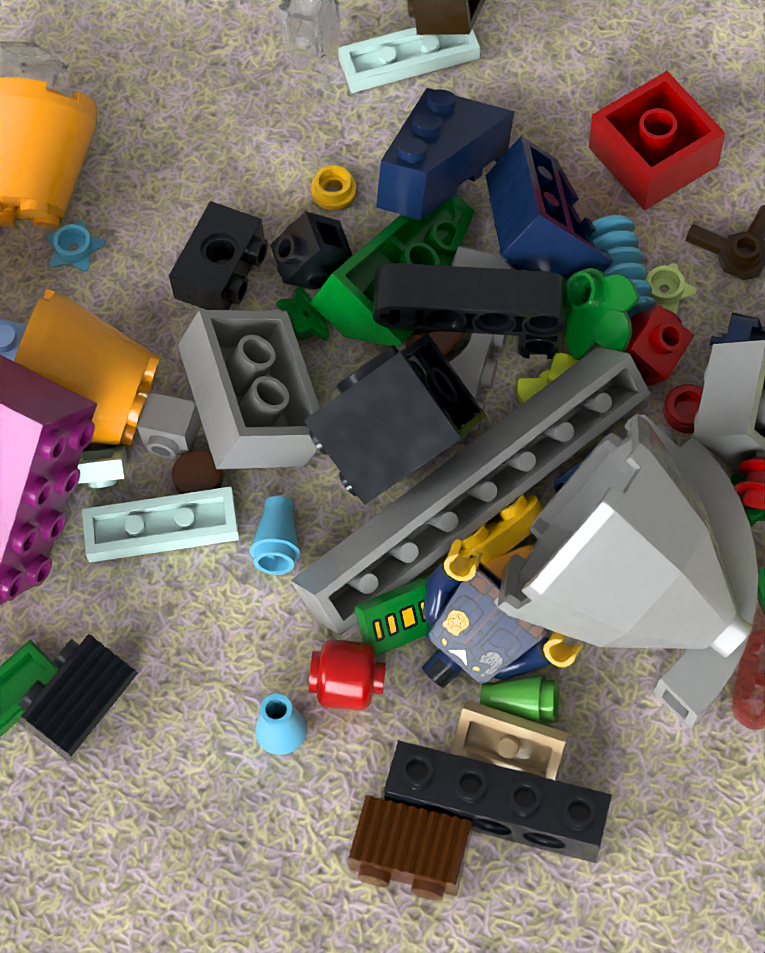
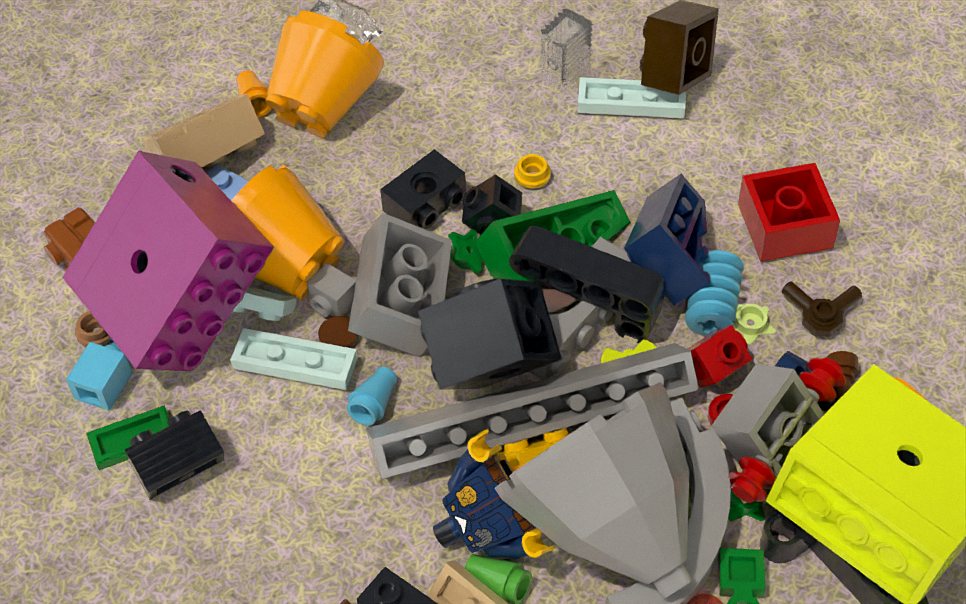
camera: 20 degrees right, 10 degrees down
(70, 235) = (325, 145): medium azure plate -> none
(280, 734) = (309, 527): medium azure cone -> none
(346, 674) = (374, 509): red head -> none
(394, 617) = (424, 481): green tile -> none
(440, 149) = (616, 166): dark blue wedge -> none
(598, 311) = (682, 315): green plate -> none

